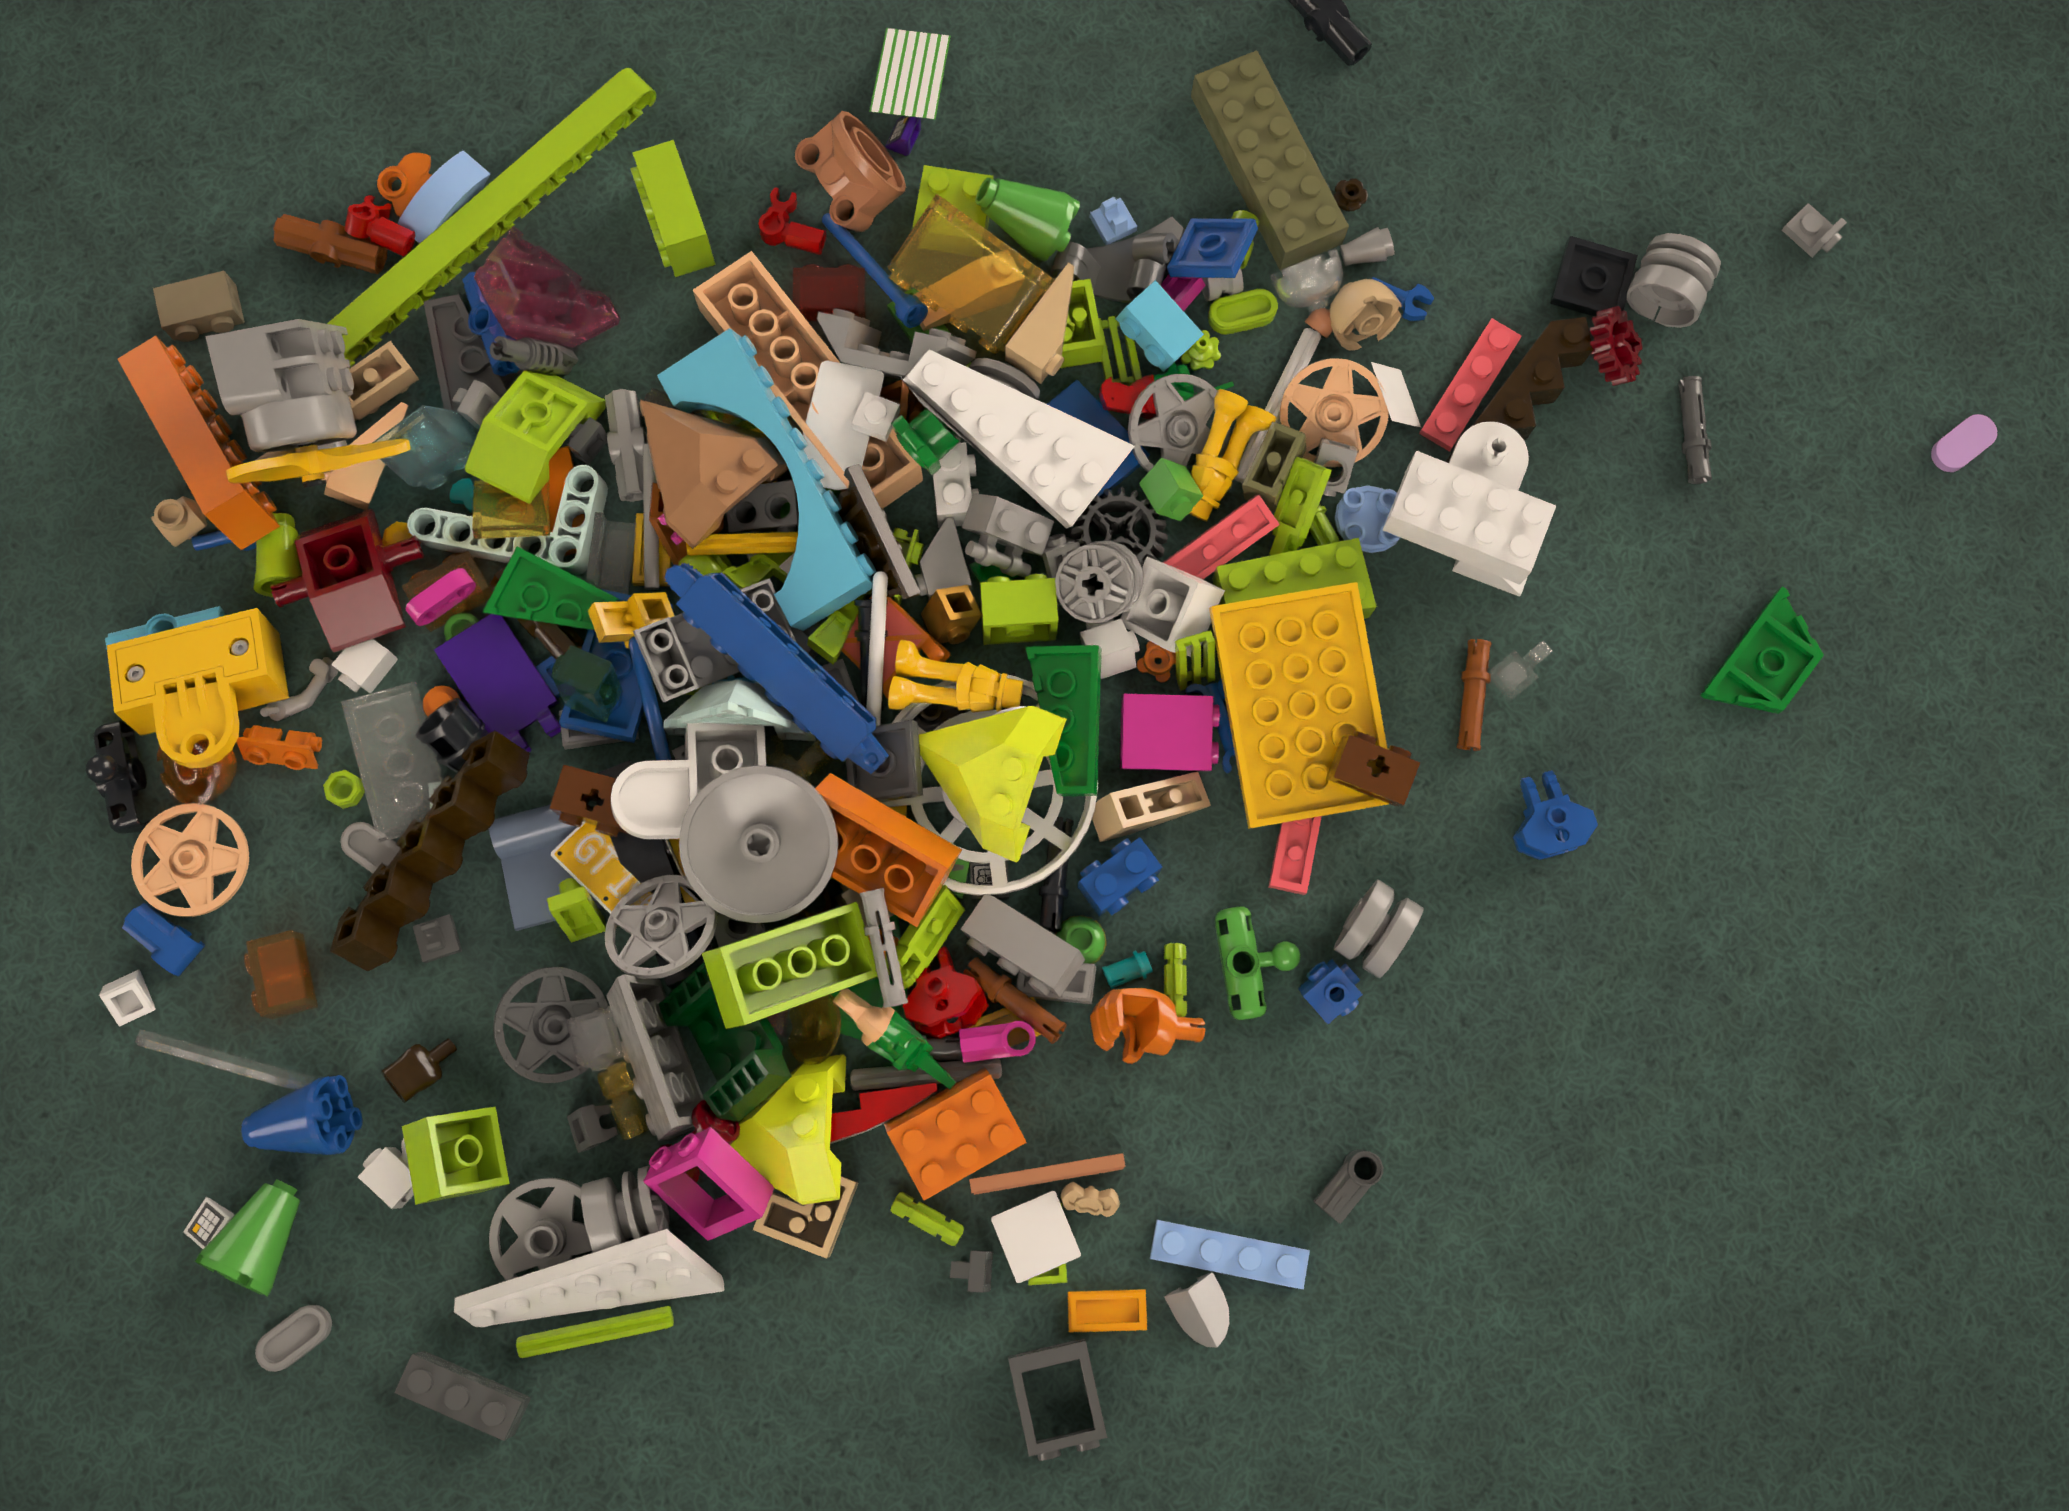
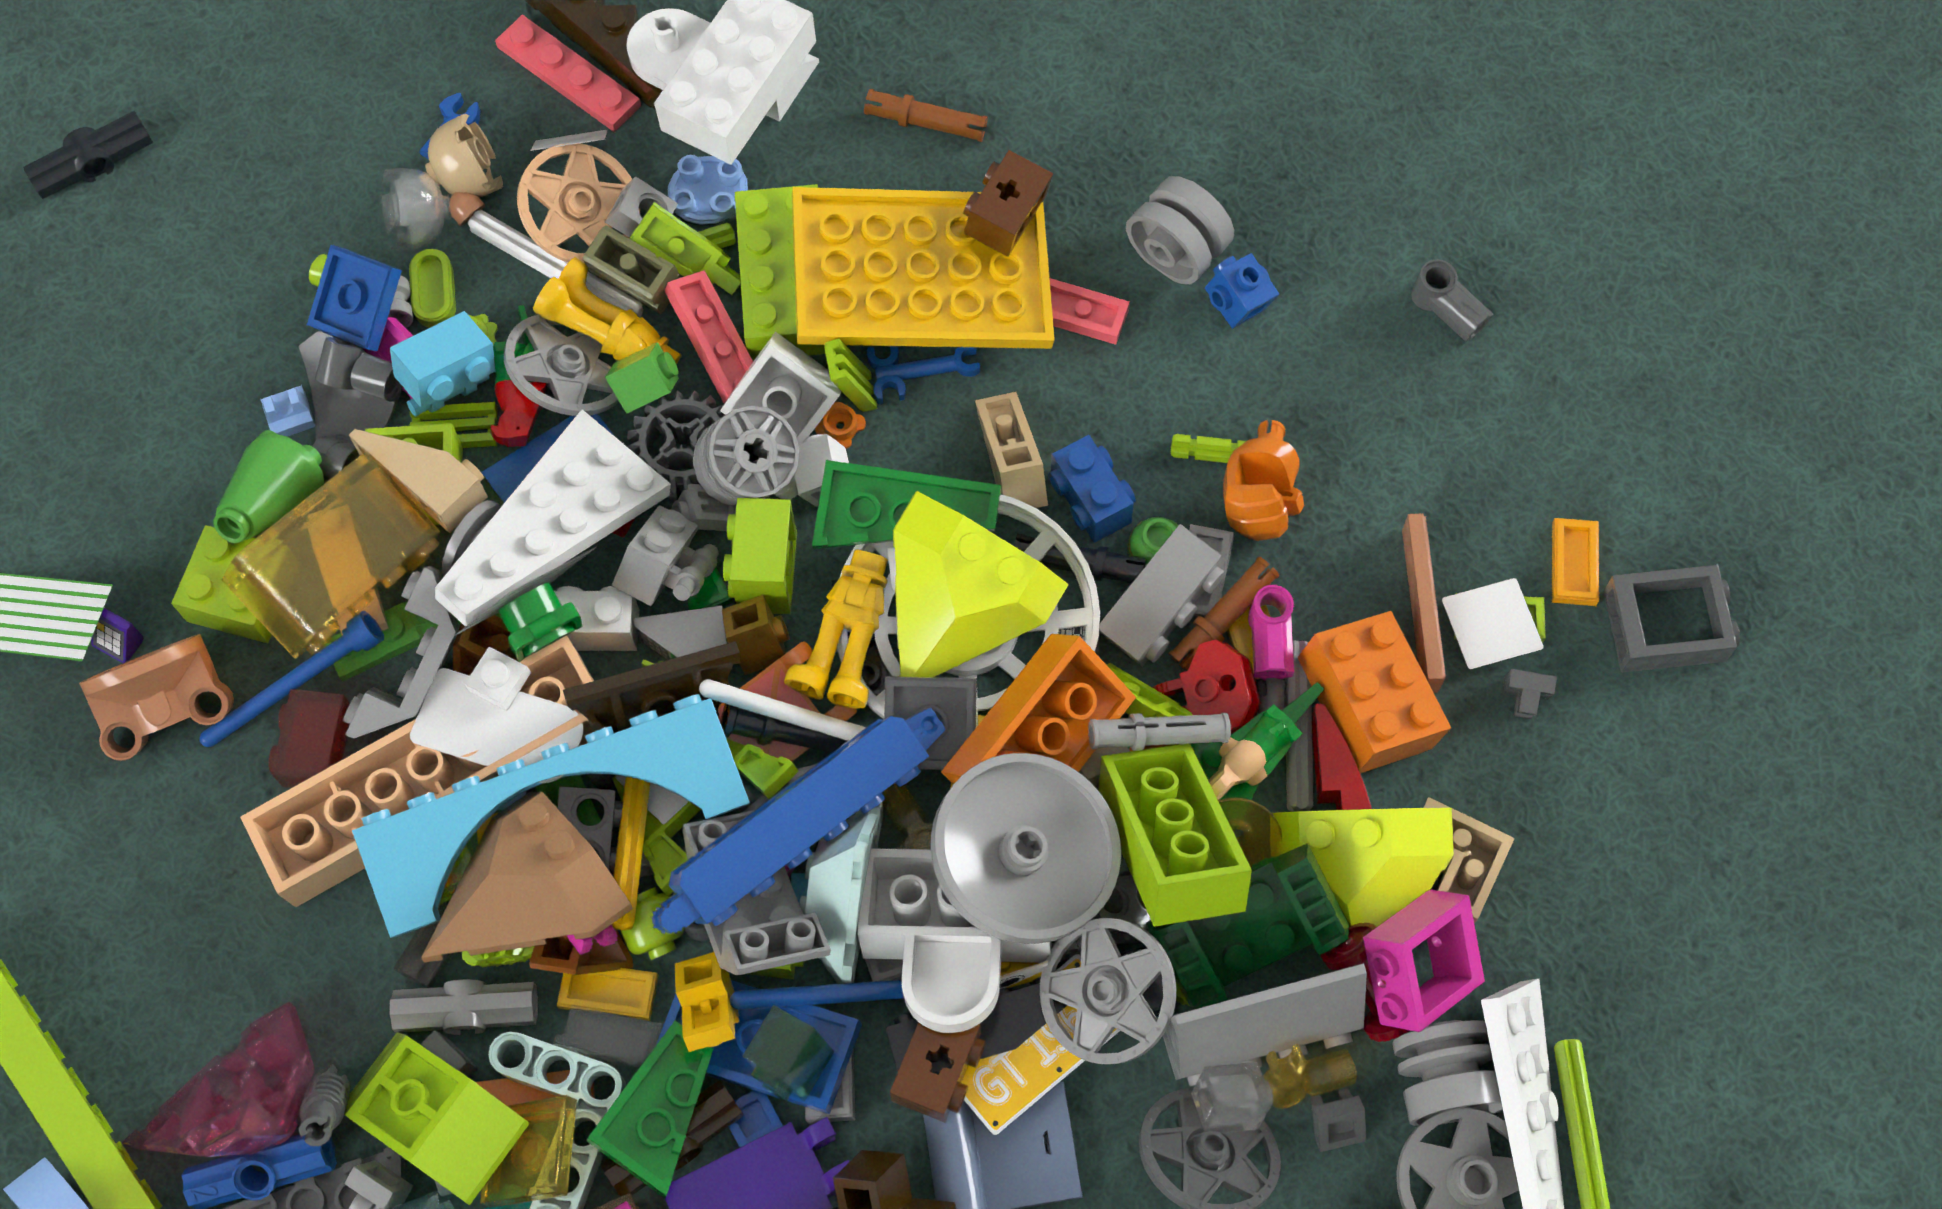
camera: 75 degrees left, 10 degrees down
(576, 911) = (1070, 1108): lime tile -> none
(651, 540) = (584, 982): light grey bar -> none
(671, 209) = (155, 915): lime brick -> none
(776, 229) = (207, 801): red bar -> none
(927, 1218) = (1466, 740): lime axle -> none
(1090, 1200) = (1453, 563): tan piece -> none
(1127, 969) = (1196, 495): teal pin -> none
(1168, 732) = (929, 419): dark pink brick -> none
(1201, 1310) = (1580, 464): brick -> none
(1229, 1254) = (1518, 432): light blue plate -> none
(1268, 160) = (249, 233): olive brick -> none
(1283, 956) = (1184, 387): bright green piece -> none
(1347, 202) = (317, 168): dark brown plate -> none
(1369, 247) = (383, 144): light grey cone -> none
(1516, 673) = (902, 72): clear plate -> none
(1552, 818) = (1076, 58): blue hinge -> none

